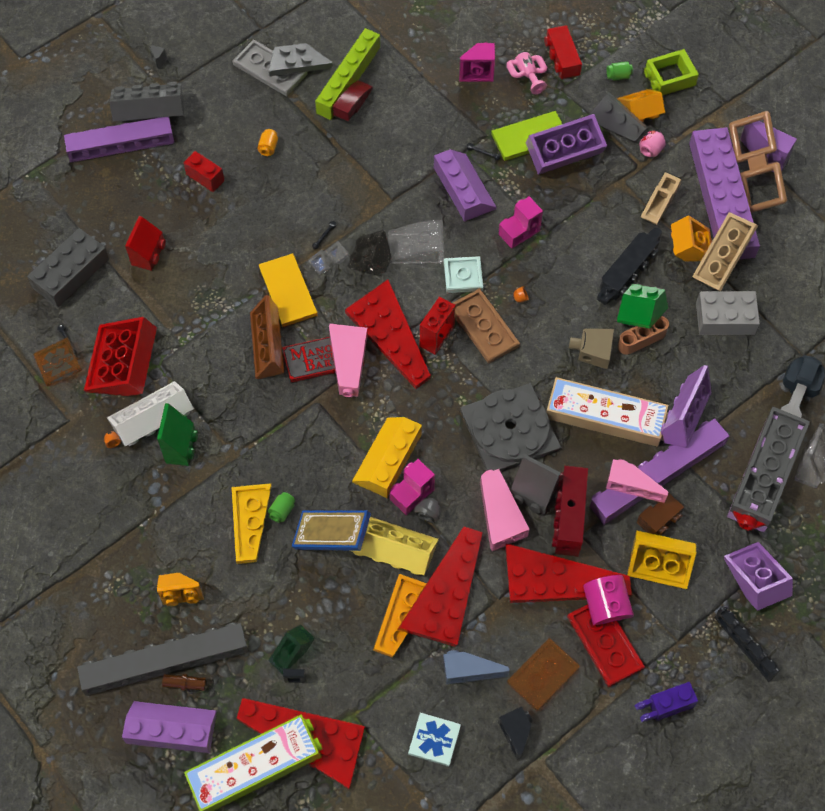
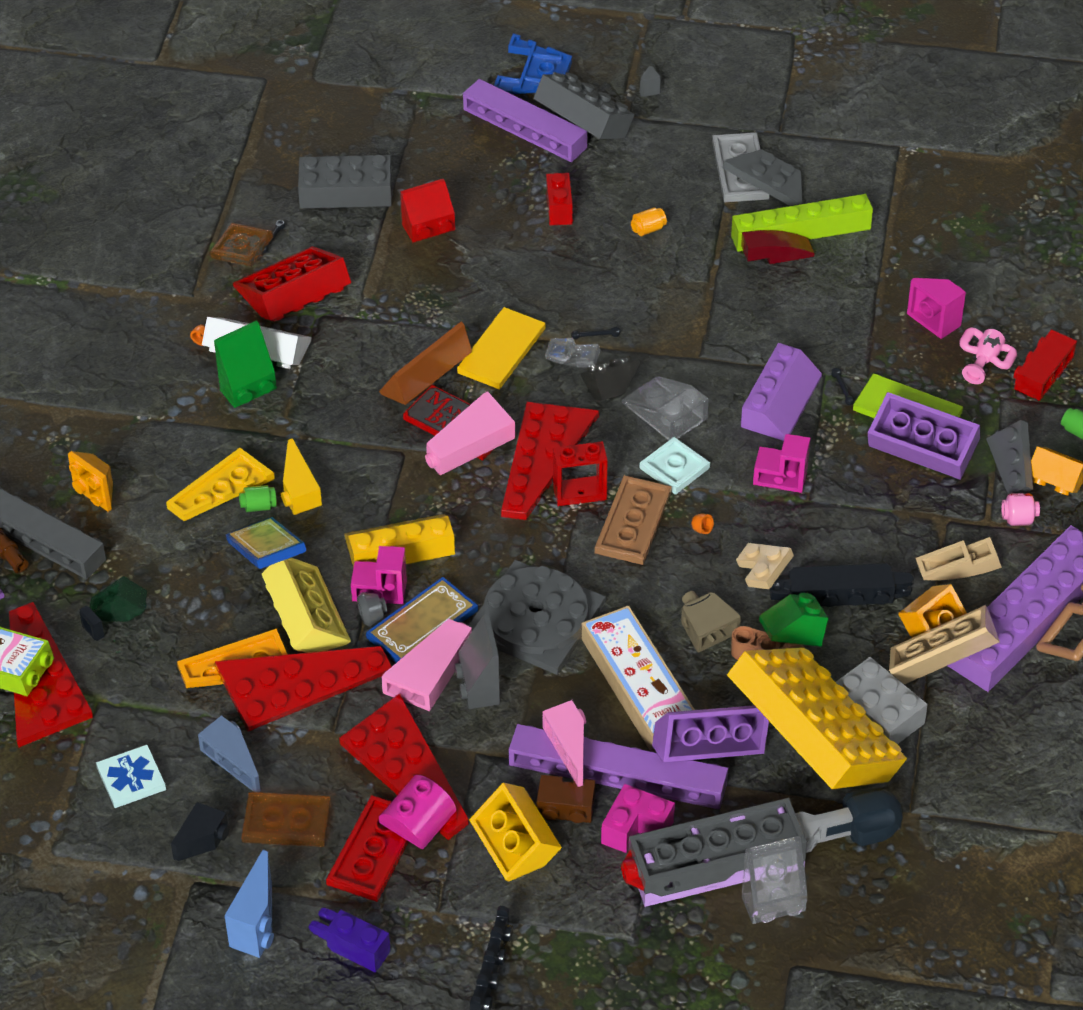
camera: 50 degrees right, 15 degrees down
(86, 96) = (539, 62): none -> blue wing
(292, 476) = (299, 484): none -> yellow slope
(459, 490) = (420, 617): none -> pearl gold tile
(570, 511) = (485, 715): dark red brick -> none
(583, 284) = (766, 563): none -> tan plate
(609, 742) = (251, 911): none -> medium blue slope
(701, 490) = (635, 813): none -> dark pink brick
(730, 349) = (817, 717): none -> yellow brick
(759, 576) = (582, 930): medium lavender slope -> none

